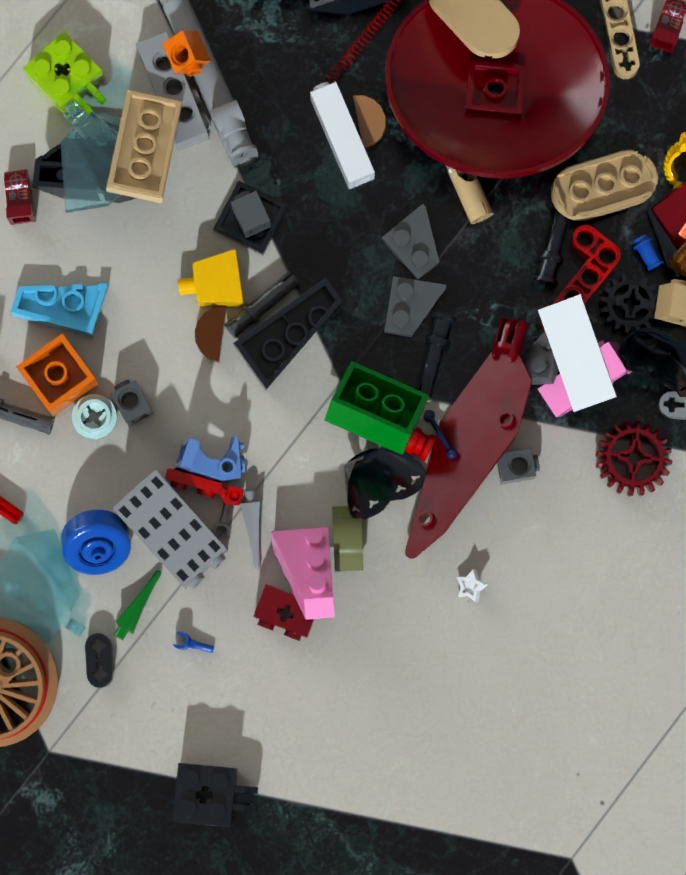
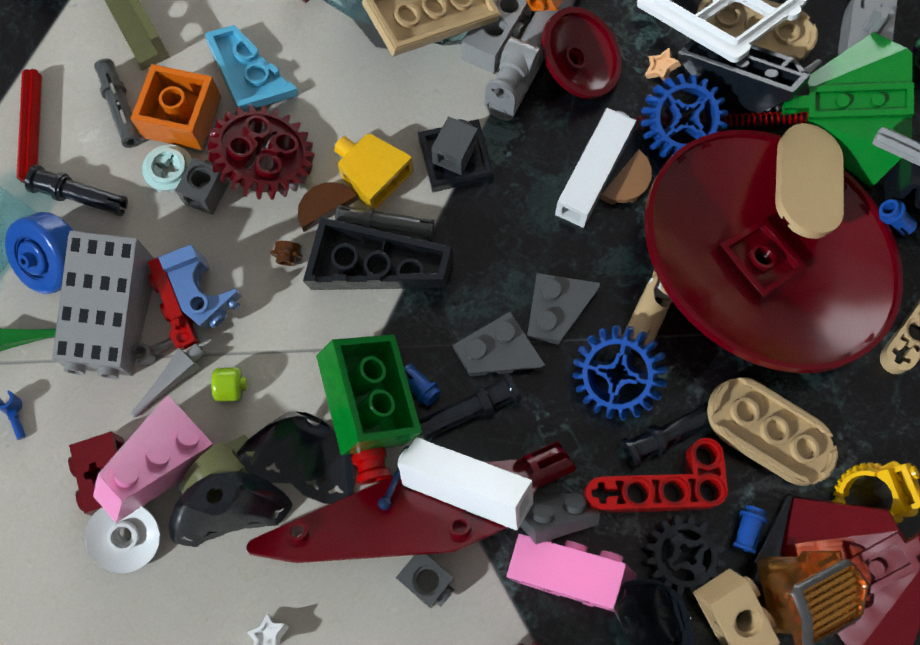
camera: 50 degrees right, 10 degrees down
(48, 498) = (62, 187): none -> black pin
(118, 351) = (247, 133): none -> dark red gear
(229, 385) = (287, 253): none -> reddish brown plate
(254, 71) = (581, 52): none -> dark red dish
(291, 491) = (228, 384): none -> lime piece
(305, 23) = (662, 65): none -> light nougat piece
(349, 632) = (113, 551): none -> white dish
(361, 39) = (675, 108): none -> blue gear
(366, 577) = (232, 512): none -> black piece
(397, 372) = (421, 387): none -> blue pin
(481, 394) = (466, 483): none -> white brick
(484, 250) = (604, 368): none -> blue gear
(577, 353) = (586, 543): white sticker -> none

